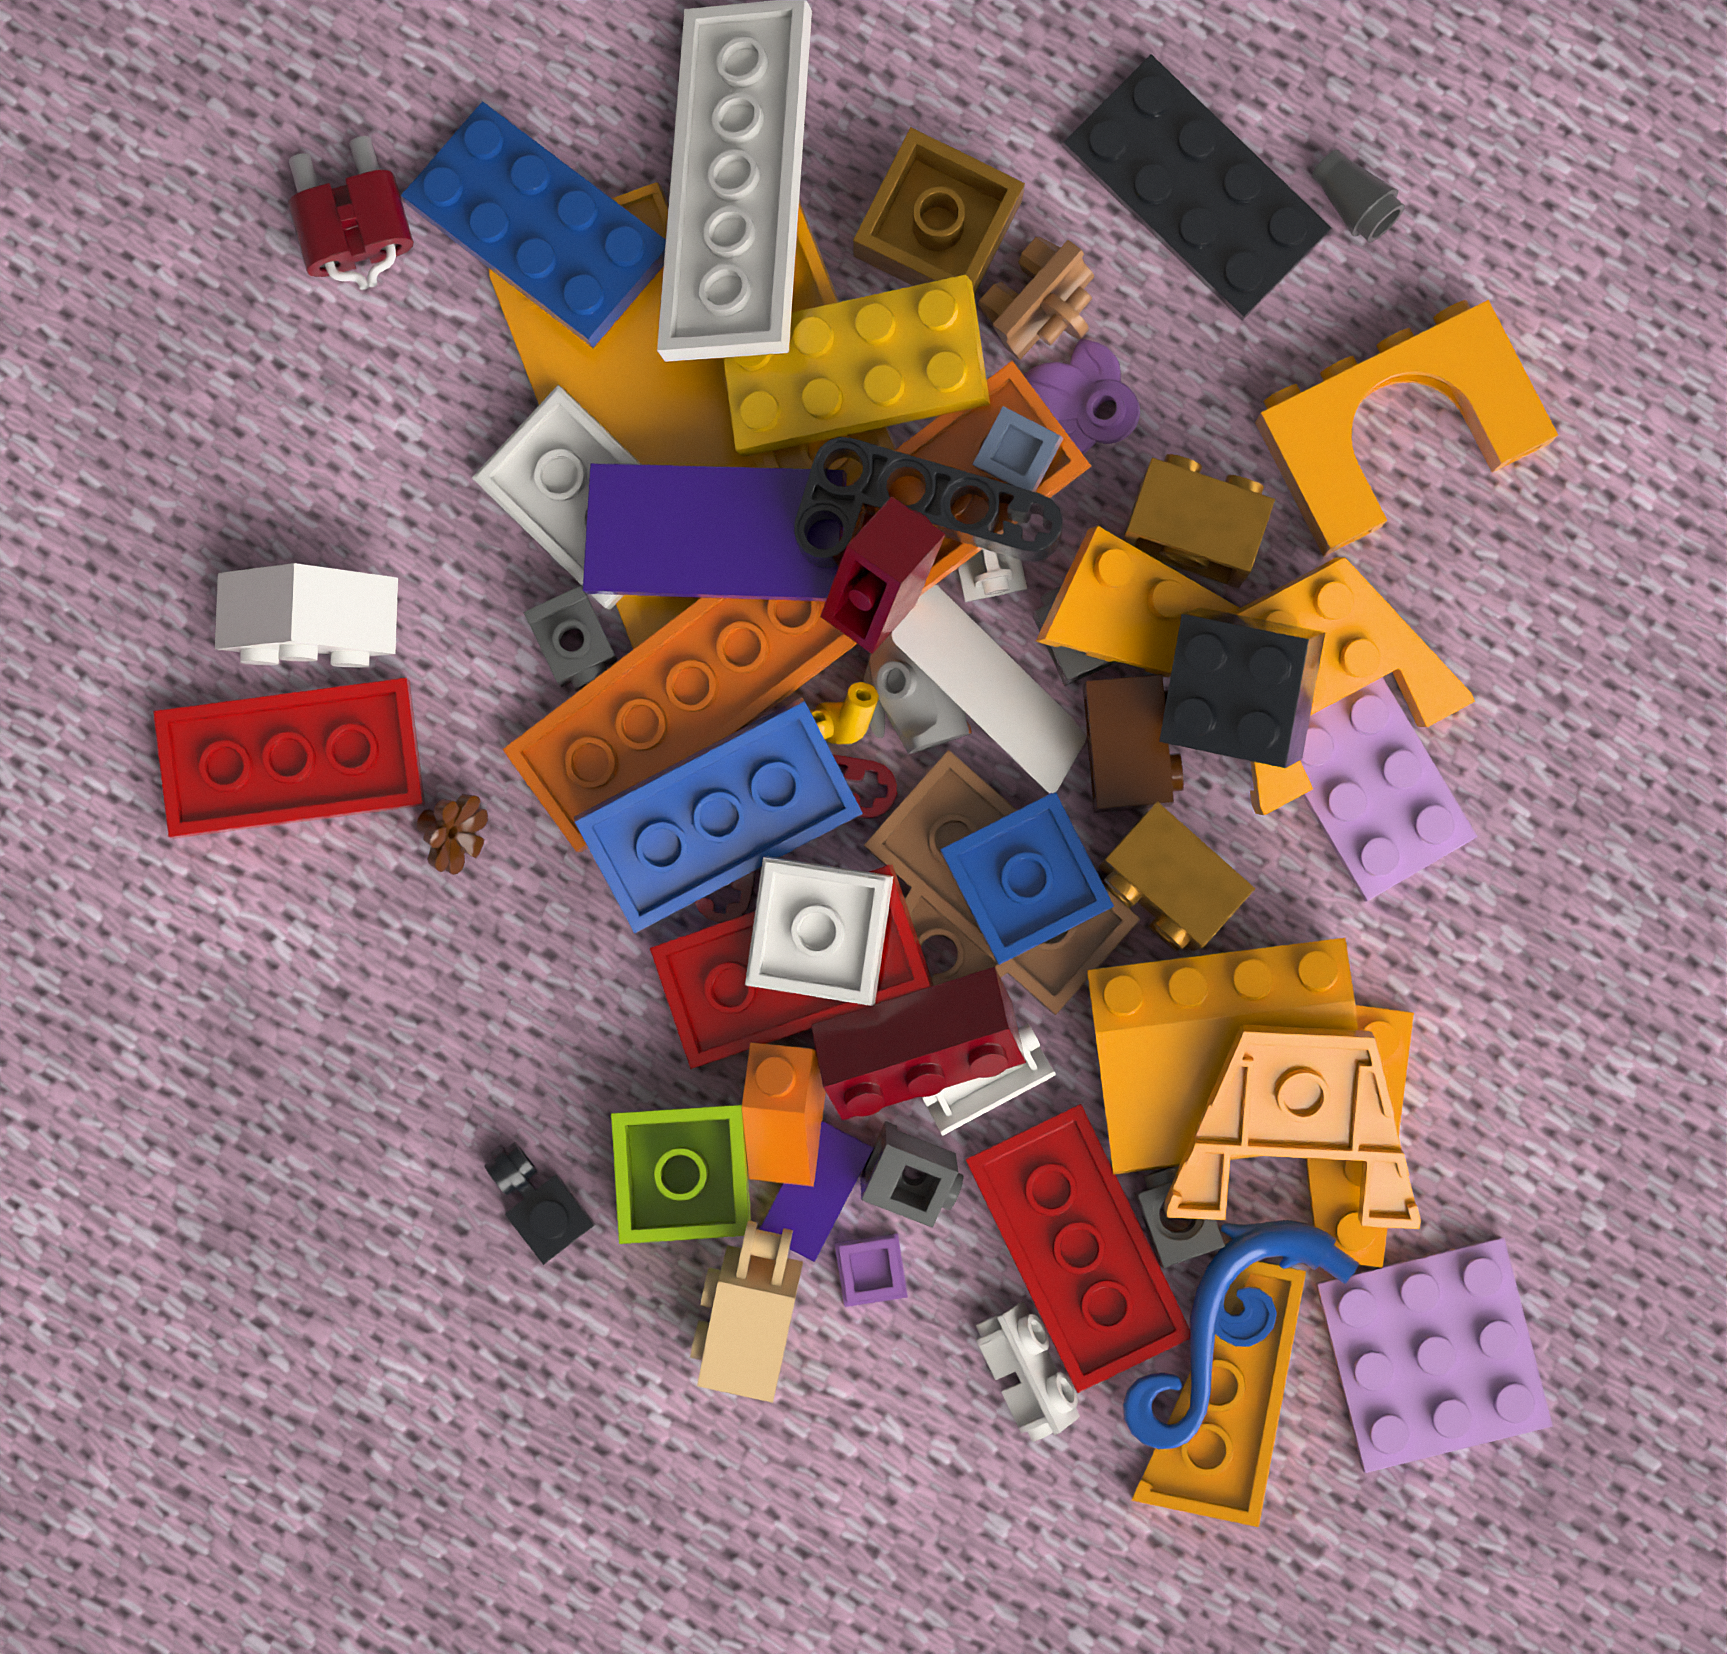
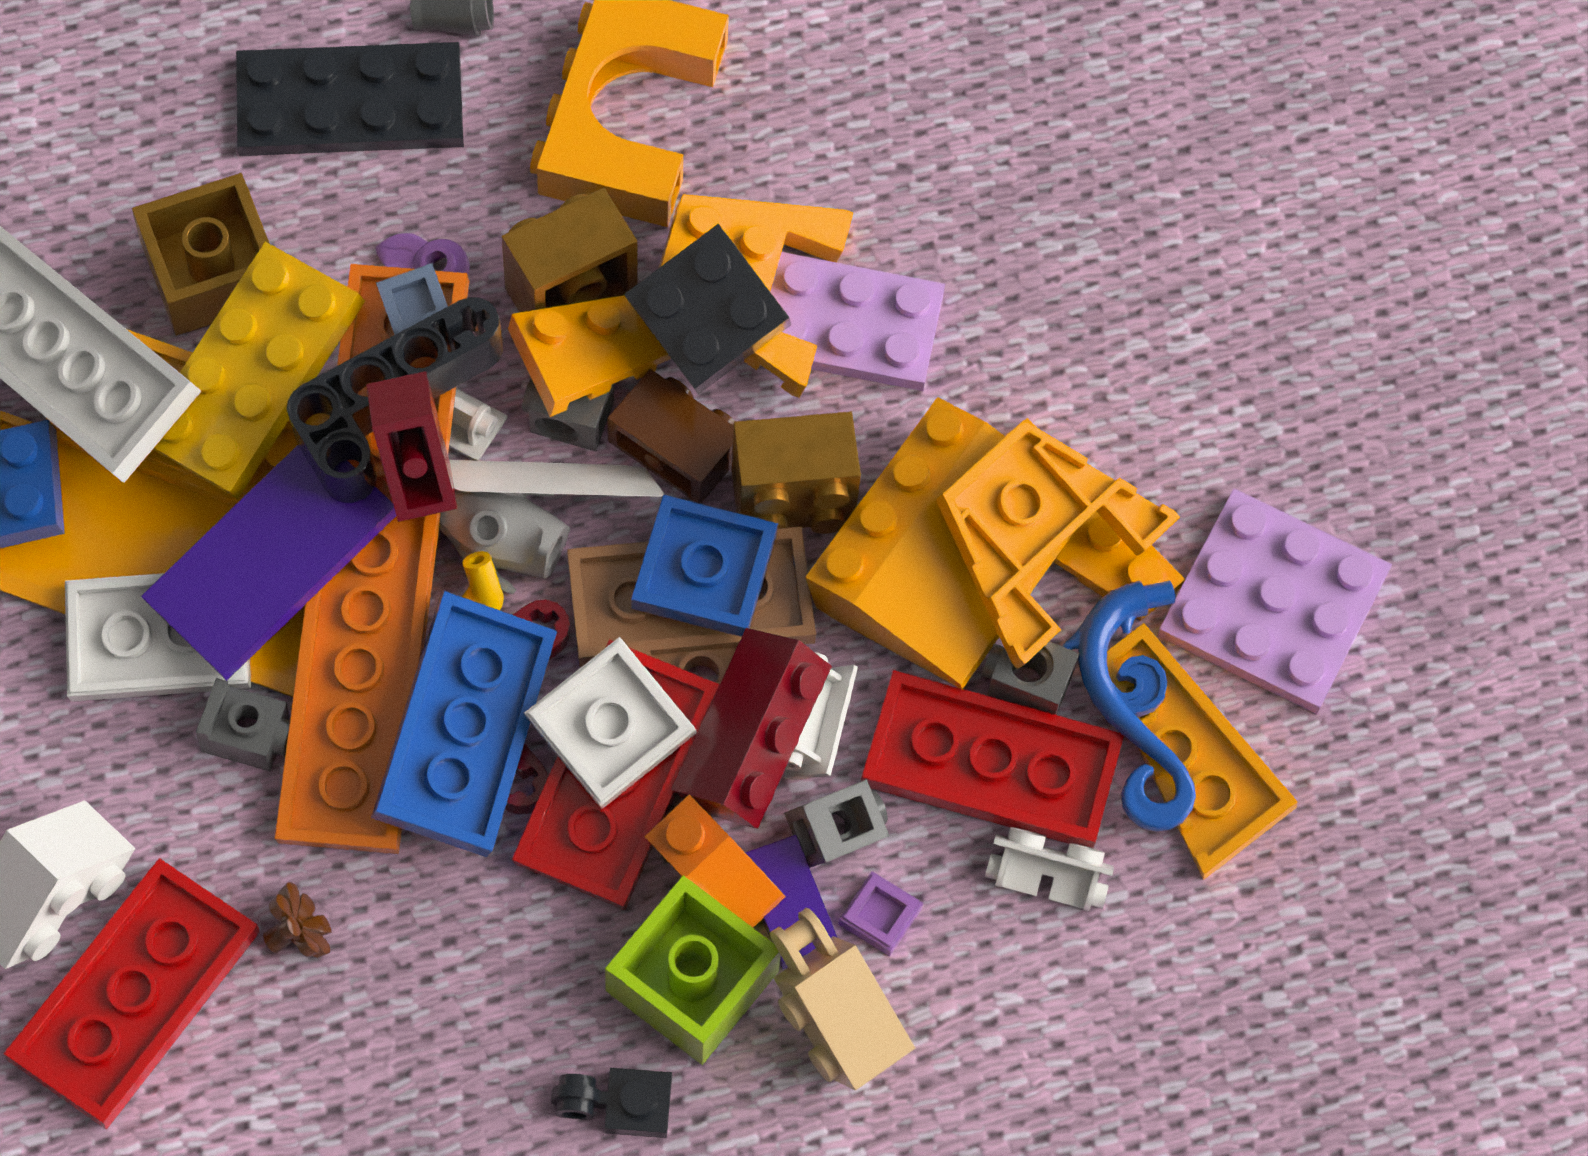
camera: 55 degrees left, 20 degrees down
(1047, 303) = (332, 231): medium nougat hips -> none

